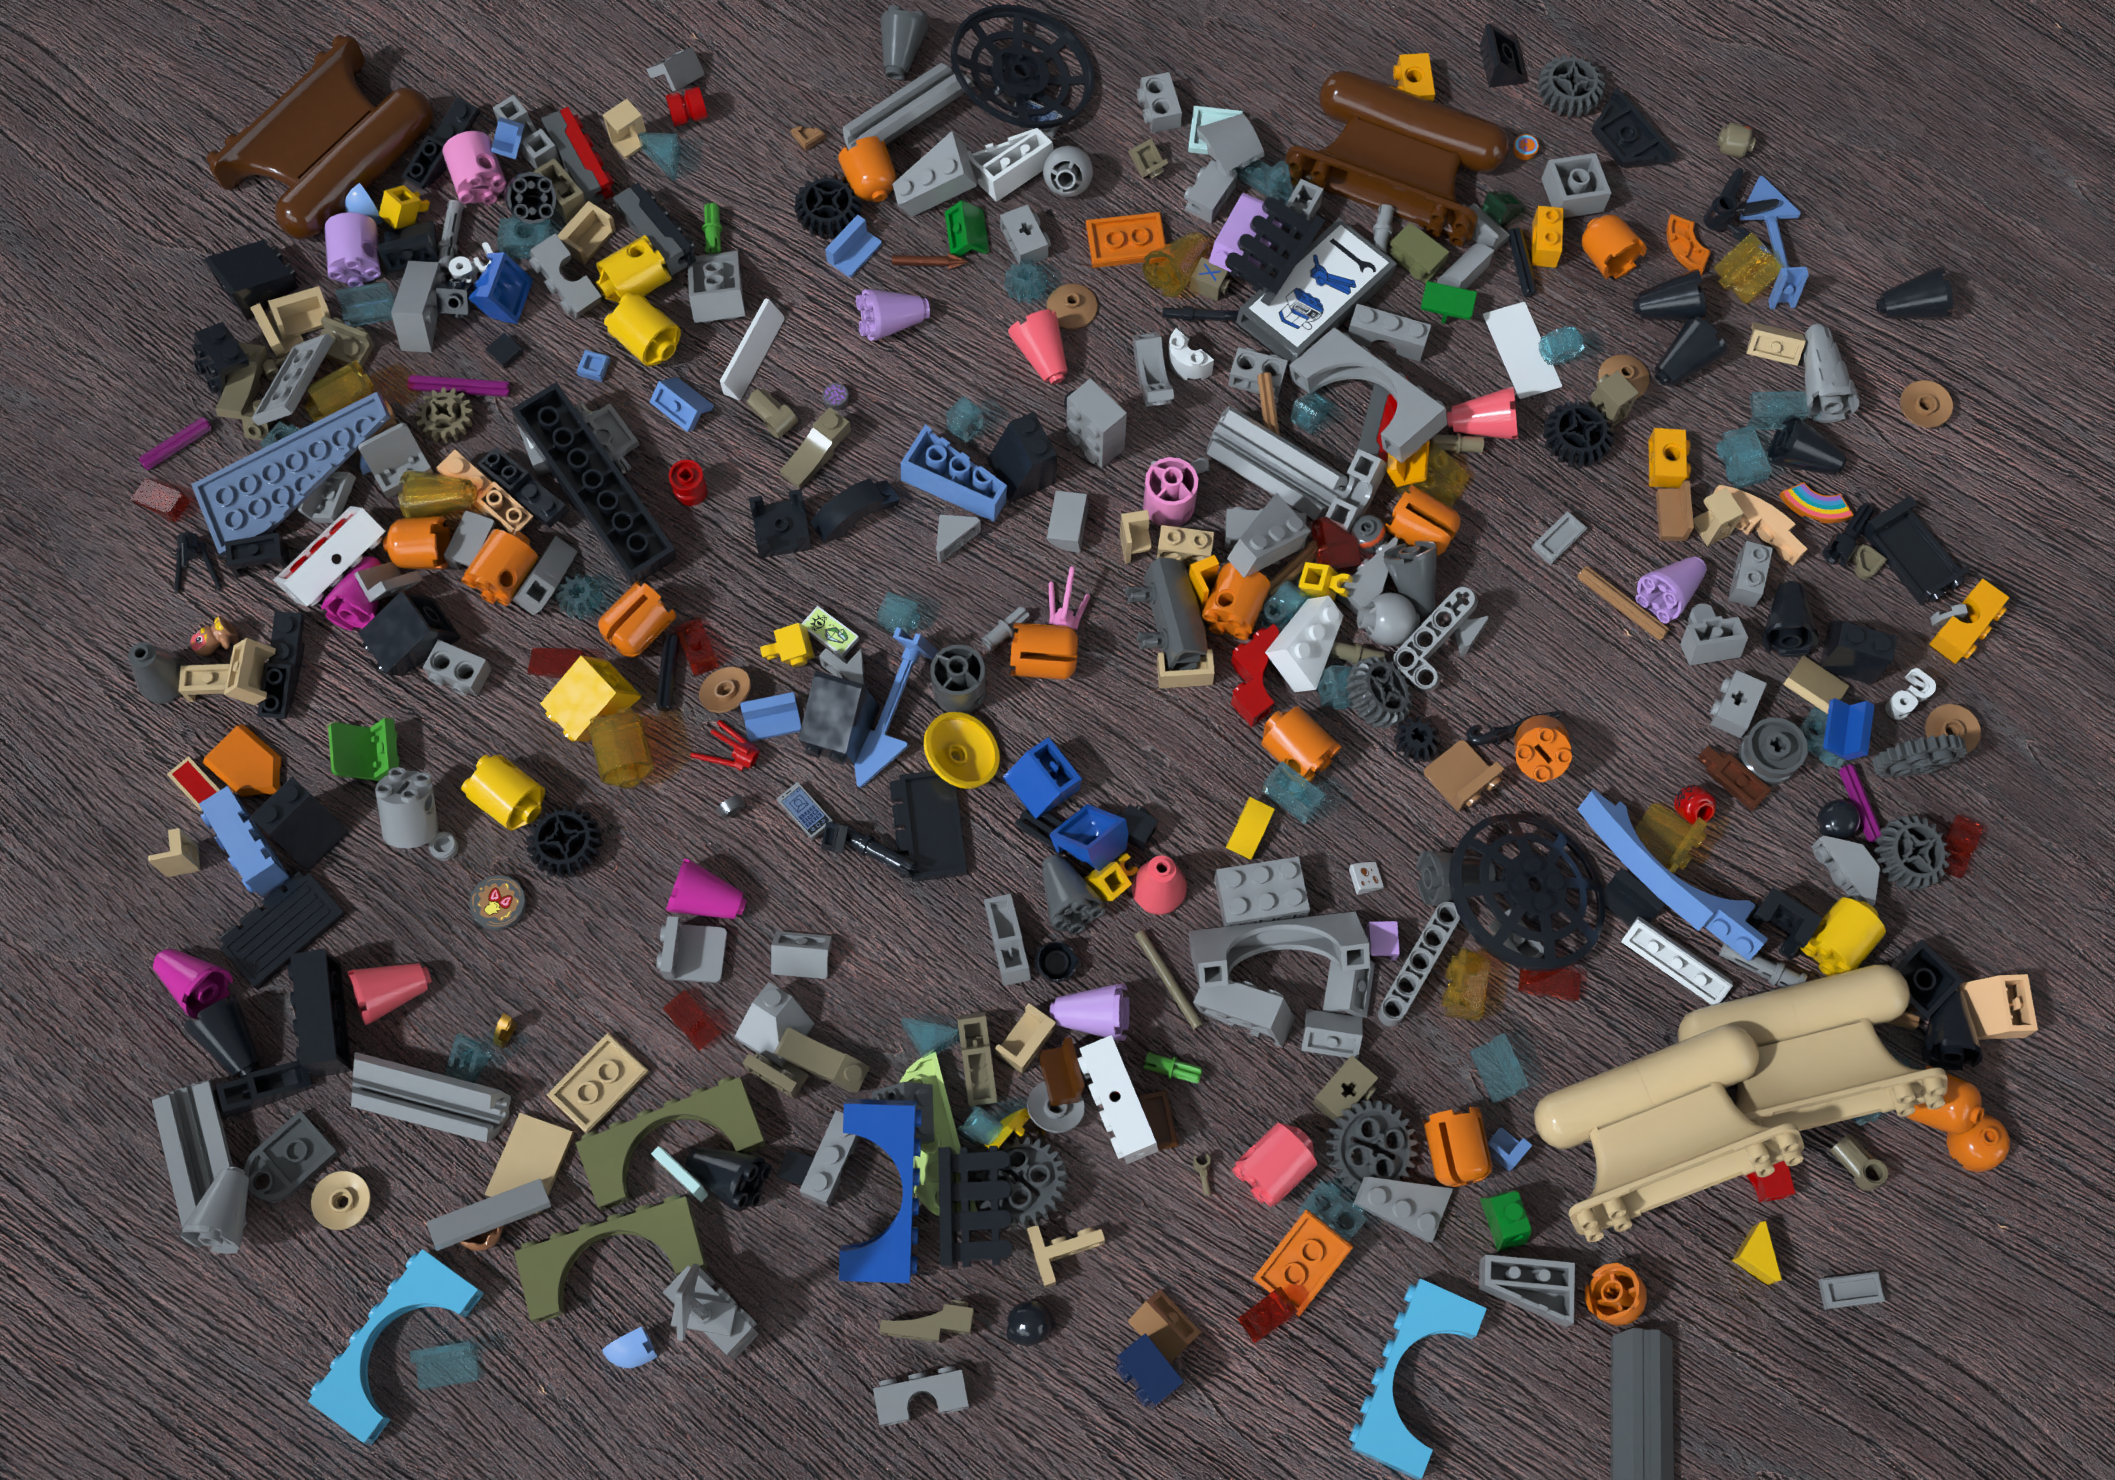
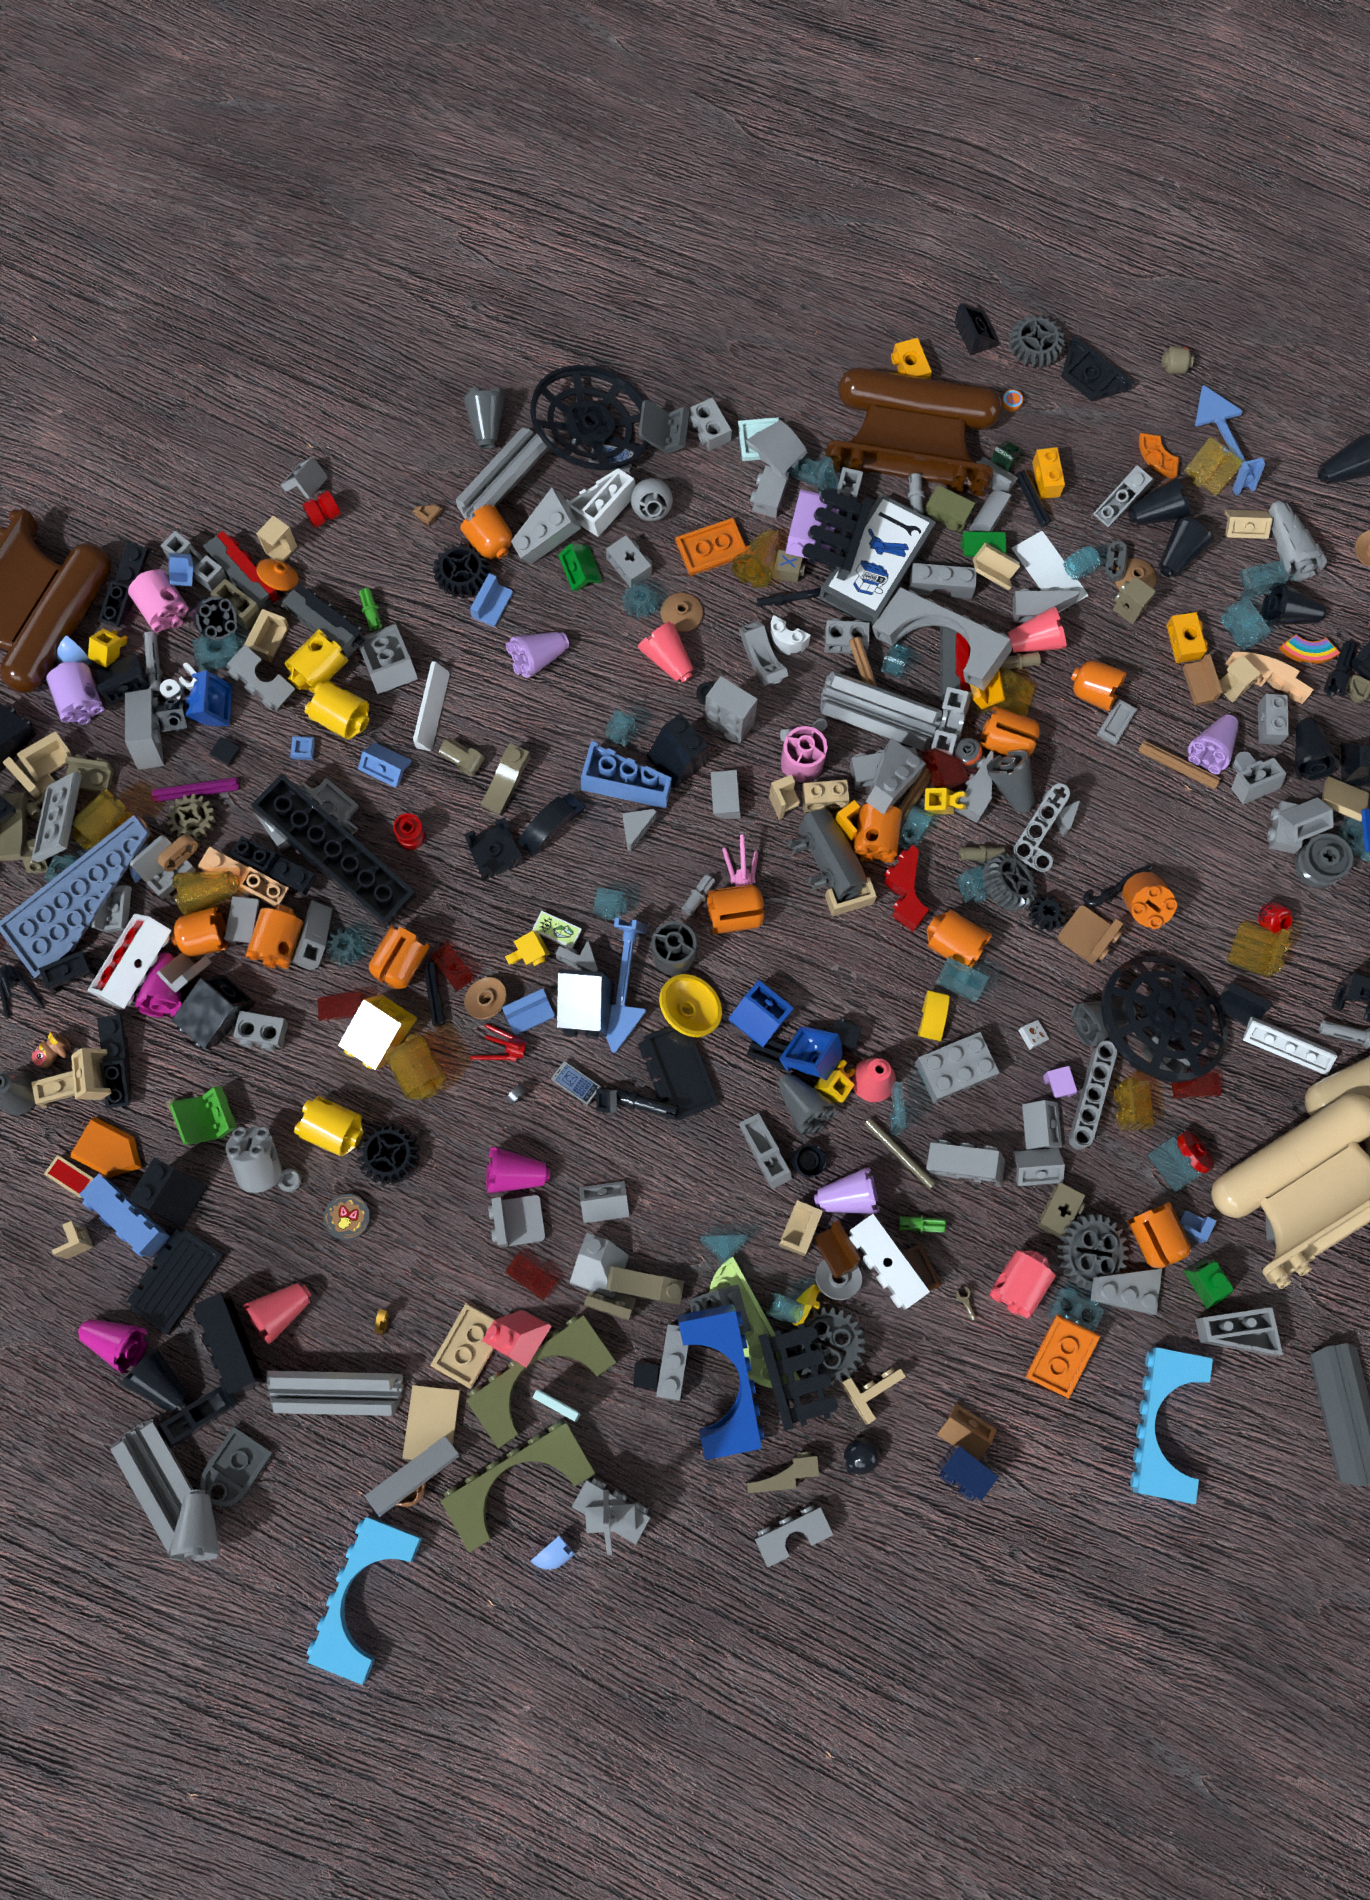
camera: 15 degrees left, 5 degrees up
(328, 1195) = (275, 1496): tan dish -> none
(366, 304) = (99, 737): clear light blue panel -> none
(417, 448) = (177, 853): none -> medium nougat beam
(446, 1365) = (409, 1604): clear light blue panel -> none
(467, 1059) = (357, 1354): clear light blue slope -> none
(616, 167) = (277, 574): none -> orange dish
(654, 1082) = (517, 1336): none -> coral slope
(663, 150) = (311, 551): clear light blue slope -> none
(730, 1175) = (595, 1396): black cone -> none
(835, 396) = (509, 730): flat silver tile -> none
(910, 260) = (573, 595): copper piece -> none
(977, 1059) = (766, 1253): dark tan slope -> none
(1102, 95) = (663, 429): none -> dark grey bracket
(1148, 159) = (712, 475): dark tan bracket -> none
(1175, 924) = (897, 1116): none -> clear light blue tile
(1267, 1315) = (1045, 1404): clear red slope -> none
(1306, 643) = (942, 854): white wedge -> none
(1332, 935) = (1021, 1089): light grey arch -> none
(1388, 619) = (1002, 820): light grey brick -> none
(1455, 327) = (995, 565): none -> tan panel
(1489, 378) = (1032, 603): none -> light grey slope
(1529, 1058) = (1195, 1149): none -> red plate
(1546, 487) = (1097, 683): none -> orange cylinder
(1574, 446) = (1113, 621): black gear -> none
(1576, 185) = (1062, 425): light grey brick -> none
(1610, 354) = (1112, 561): none -> dark grey beam
(1612, 245) = (1101, 469): orange cylinder -> none
(1616, 1294) = (1307, 1323): orange cylinder -> none
(1638, 276) = (1124, 496): none -> light grey slope
(1718, 915) = (1315, 1003): medium blue slope -> none
(1725, 207) = (1184, 419): black plant -> none
(1734, 777) = (1299, 887): copper hinge -> none
(1760, 697) = (1306, 820): none -> light grey brick

